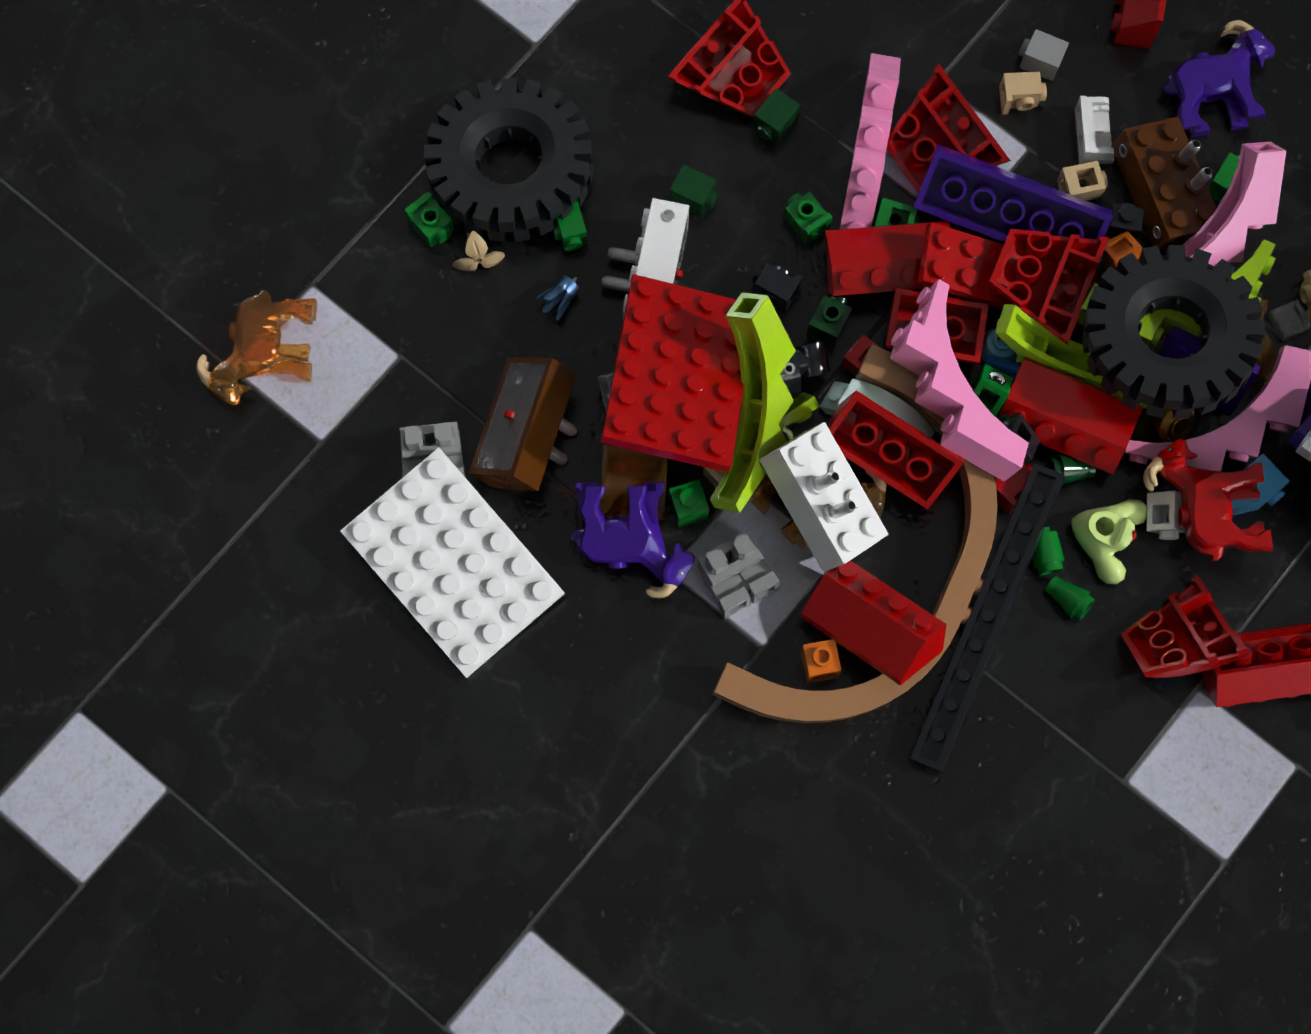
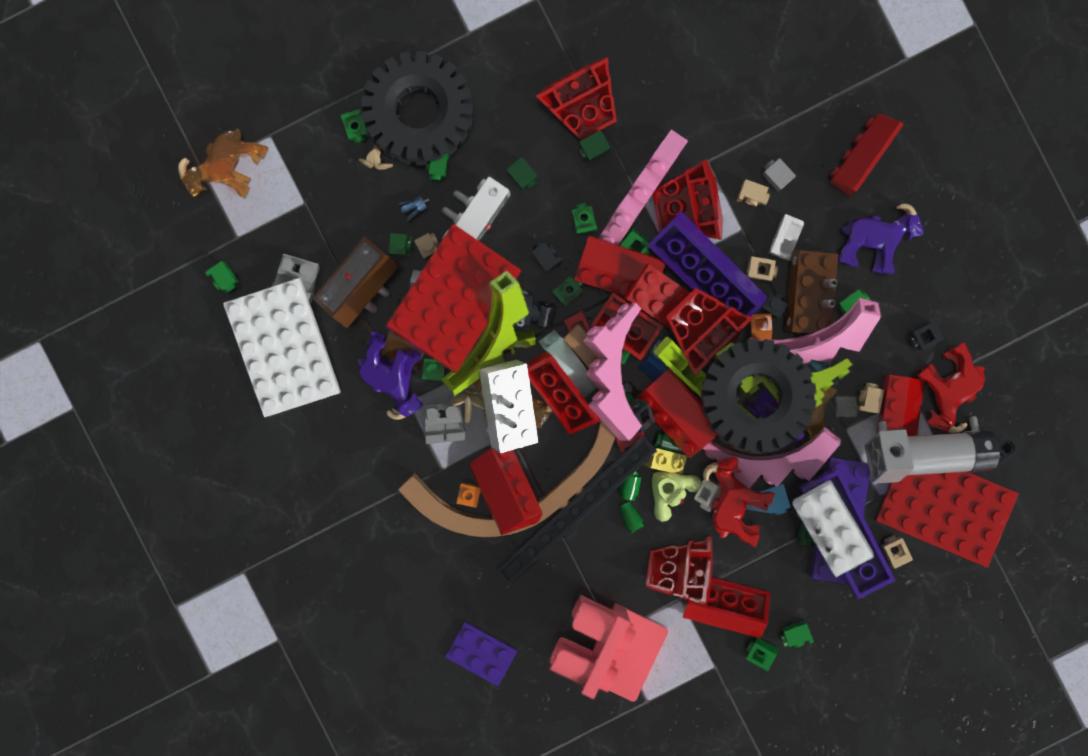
camera: 30 degrees right, 15 degrees up
(323, 500) = (223, 277): none -> green brick
(564, 349) = (400, 245): none -> green brick
(602, 338) = (427, 245): none -> tan brick
(757, 520) = (469, 398): none -> tan plant
(946, 895) = (481, 653): none -> dark purple plate
(992, 388) = (640, 378): green brick -> none
(1081, 494) = (667, 461): none -> light yellow bracket
(1155, 790) = (622, 653): none -> coral piece

